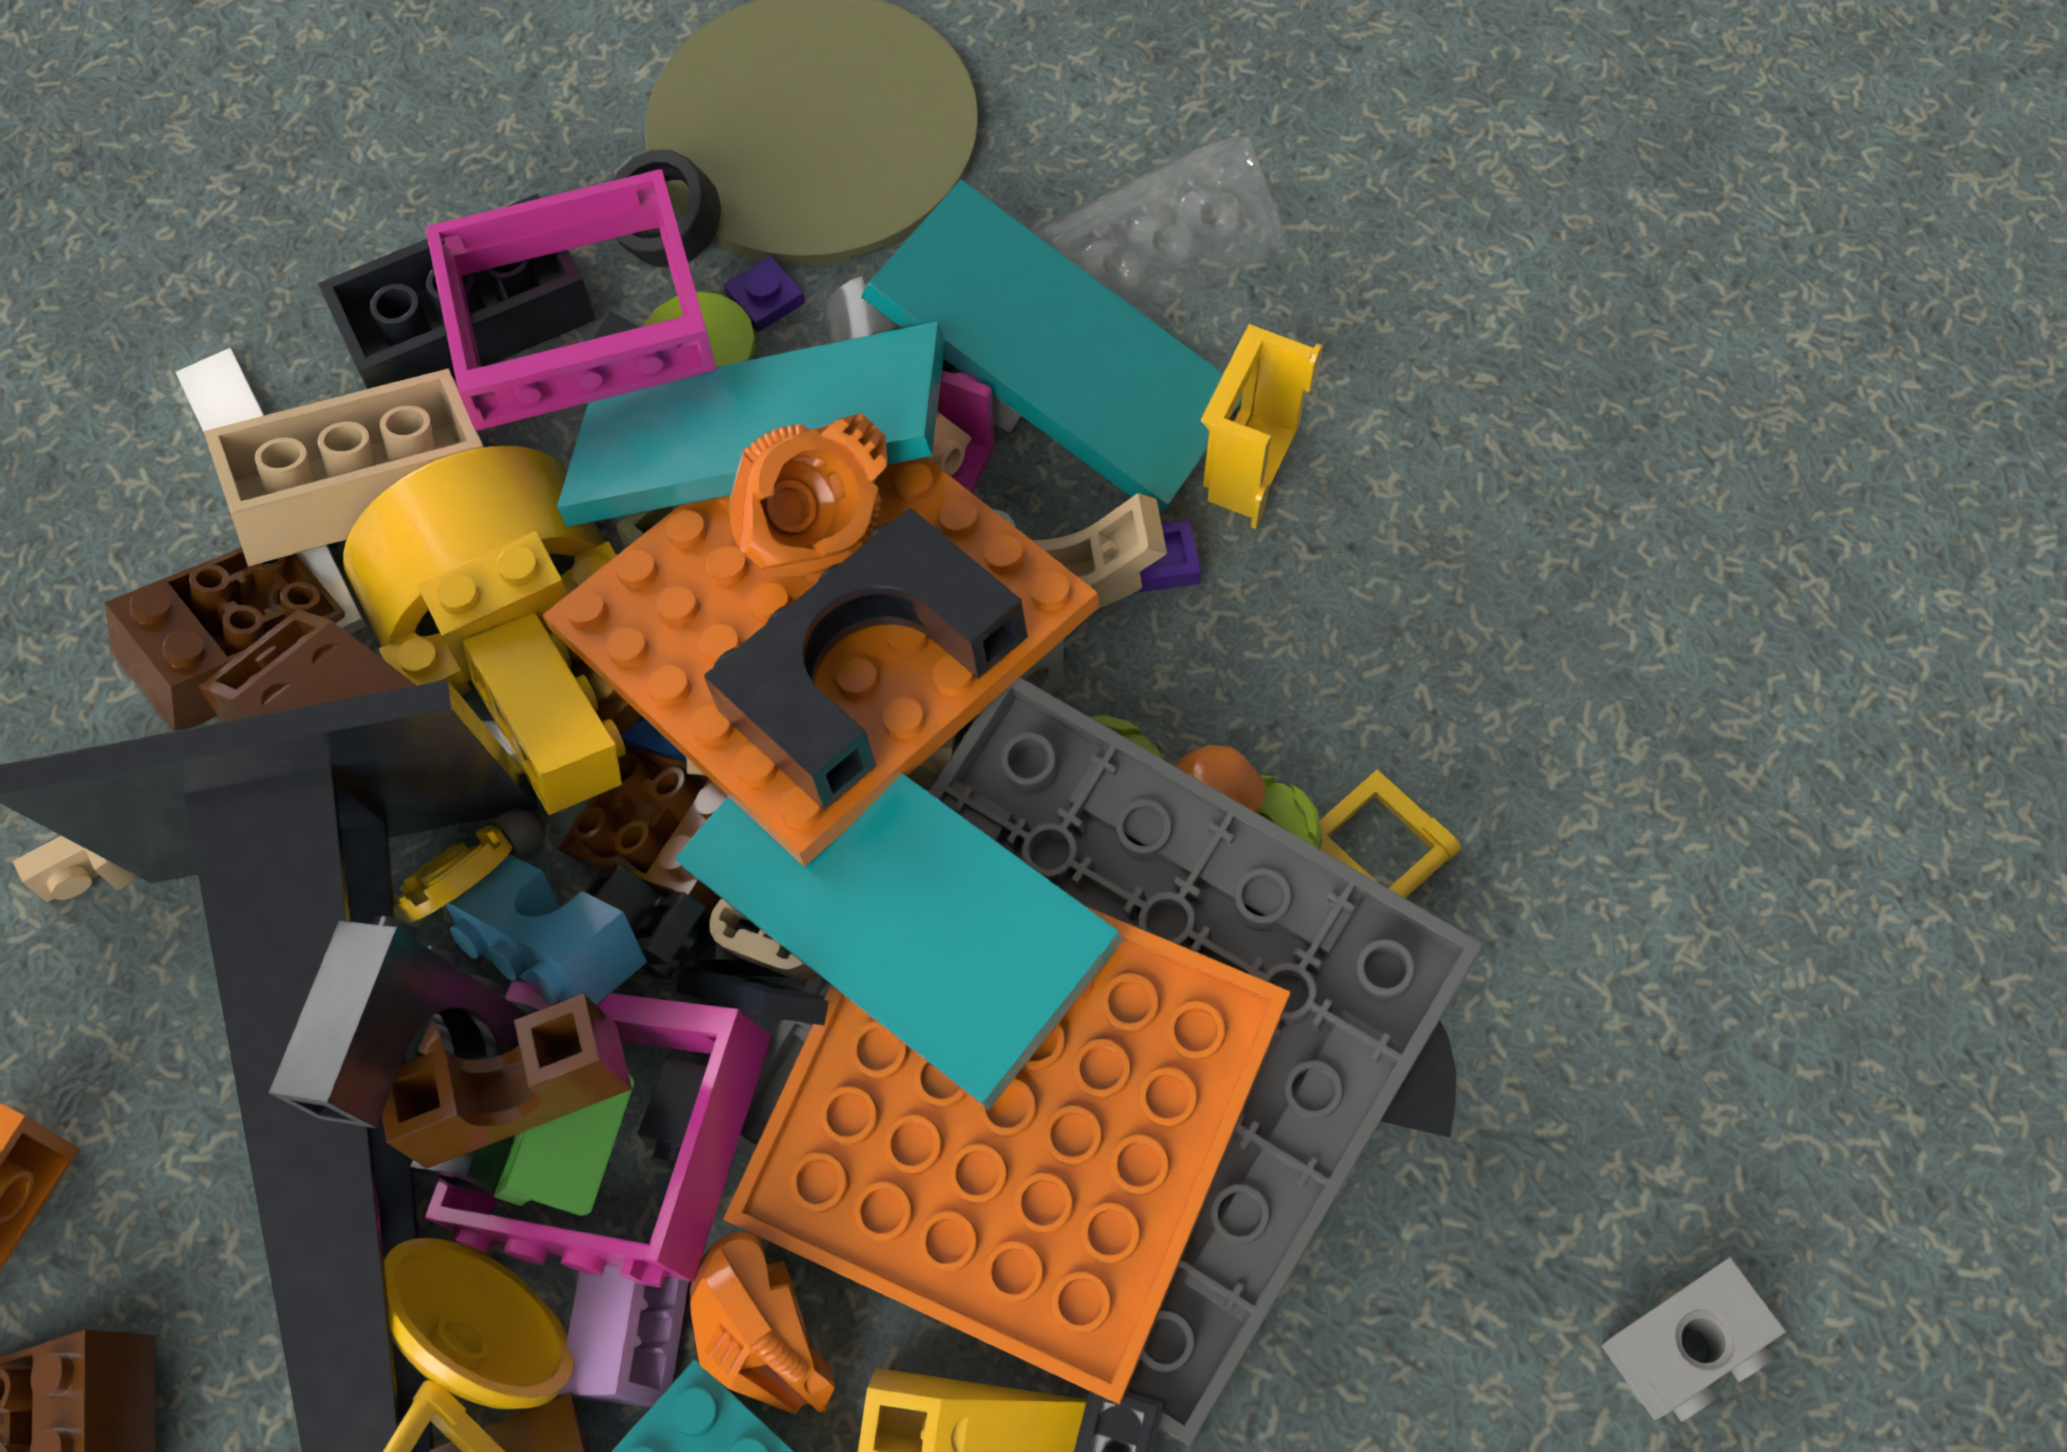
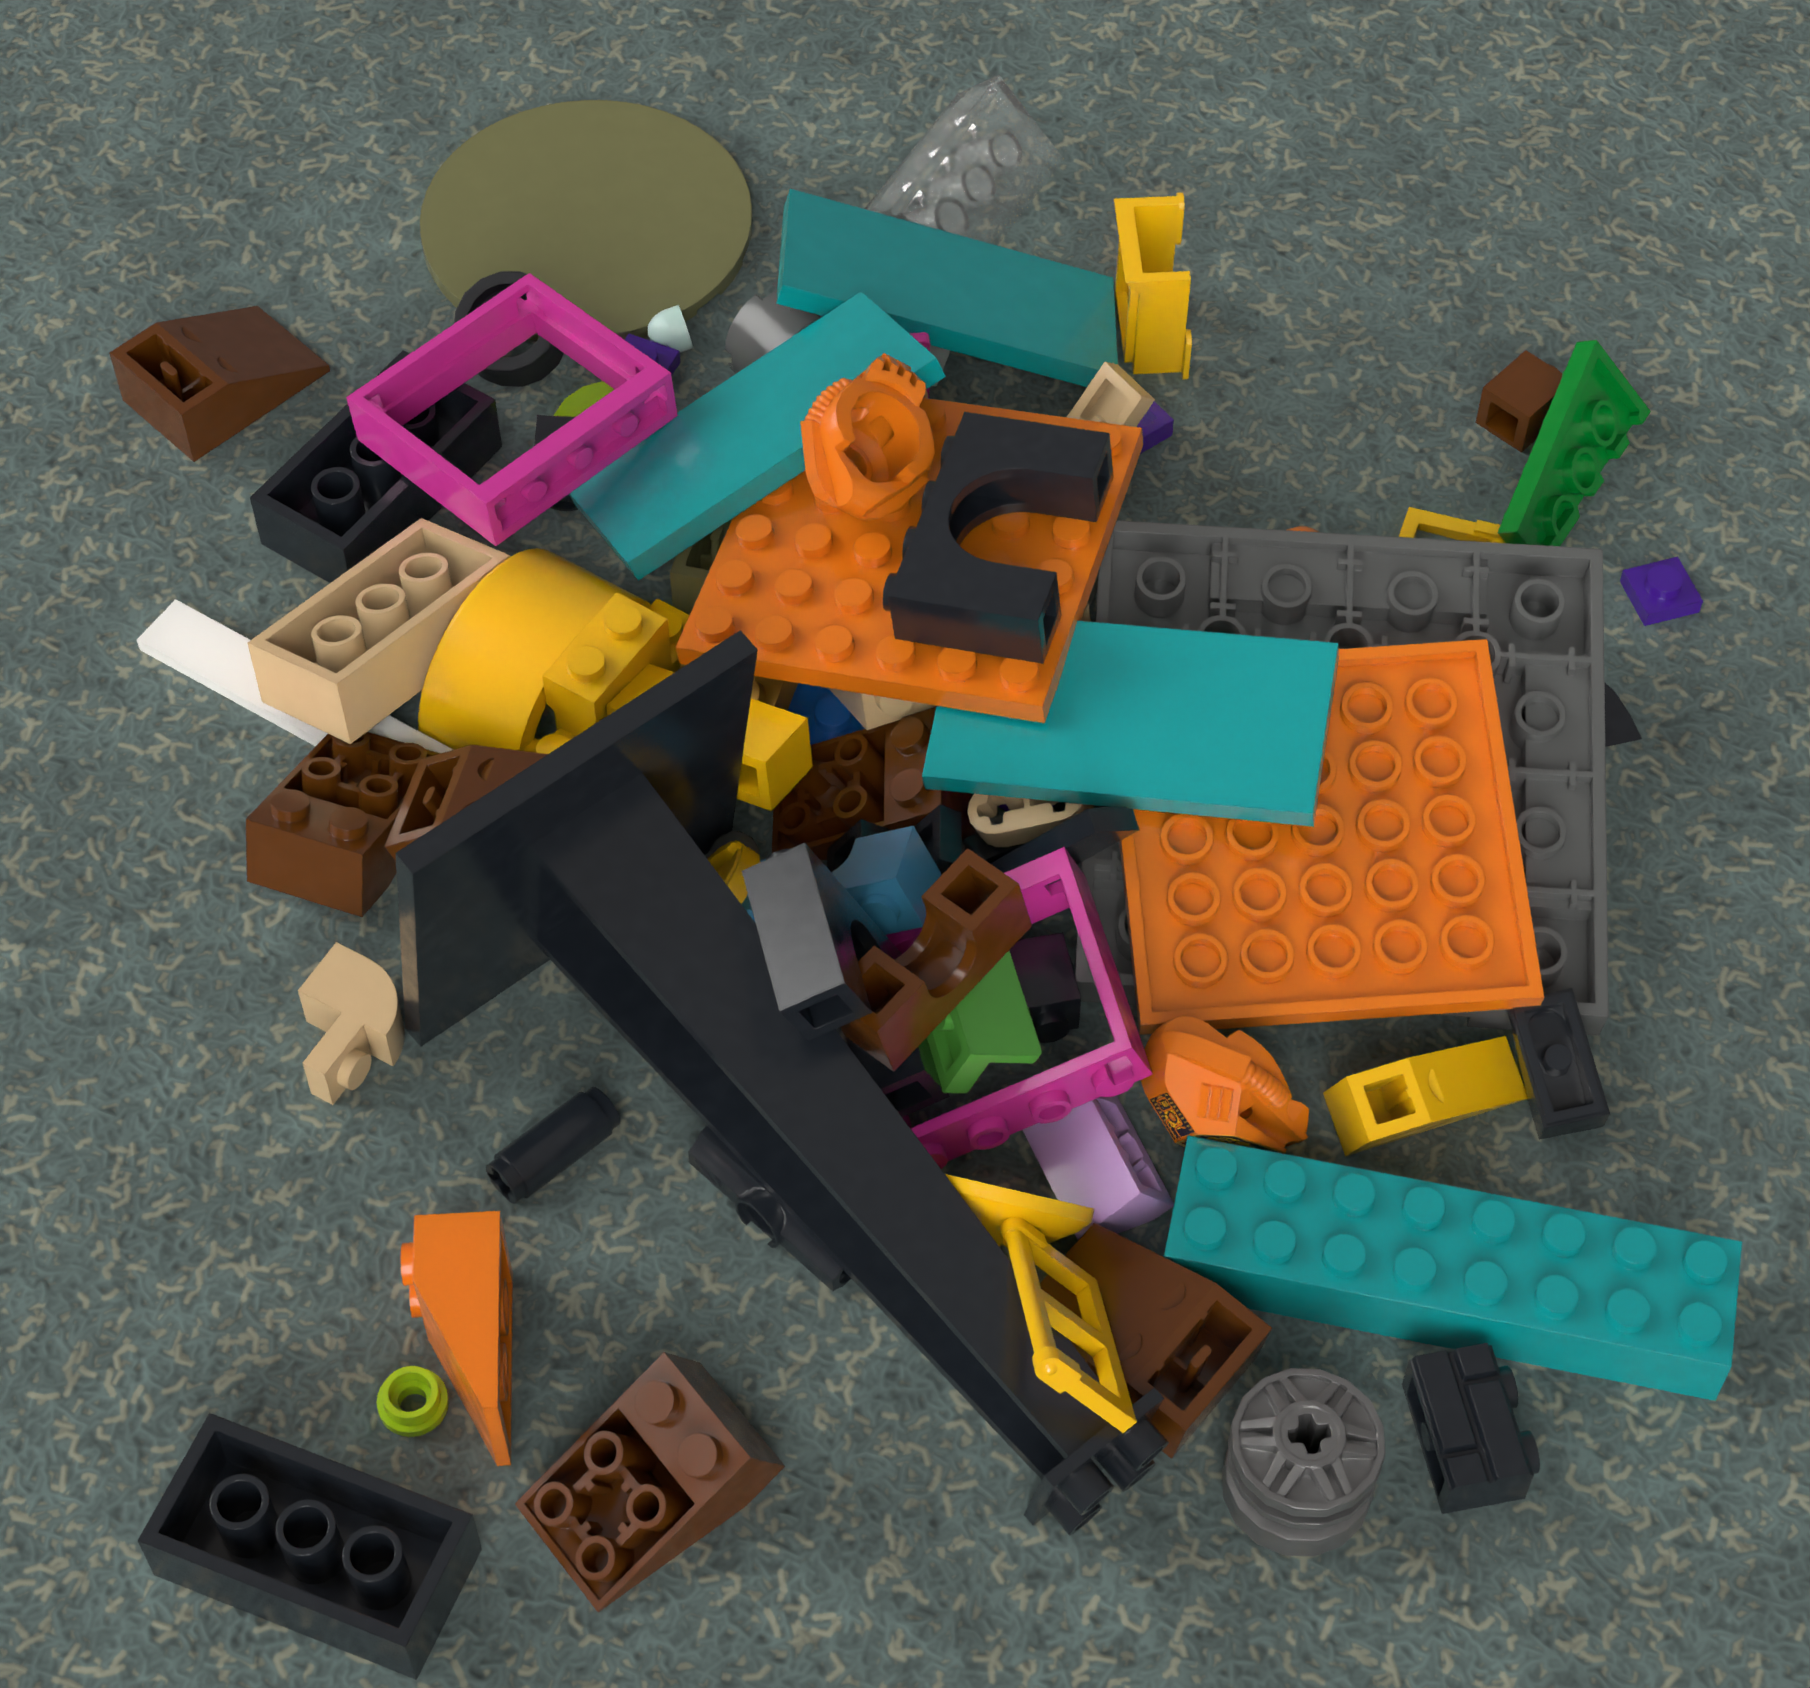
camera: 30 degrees left, 10 degrees down
(168, 1047) = (553, 1144): none -> black piece
(395, 141) = (212, 374): none -> reddish brown slope
(806, 265) = (670, 329): none -> light aqua hinge
(1562, 709) = (1518, 400): none -> reddish brown brick
(1572, 984) = (1661, 591): none -> dark purple plate
(1584, 778) = (1574, 444): none -> green wing

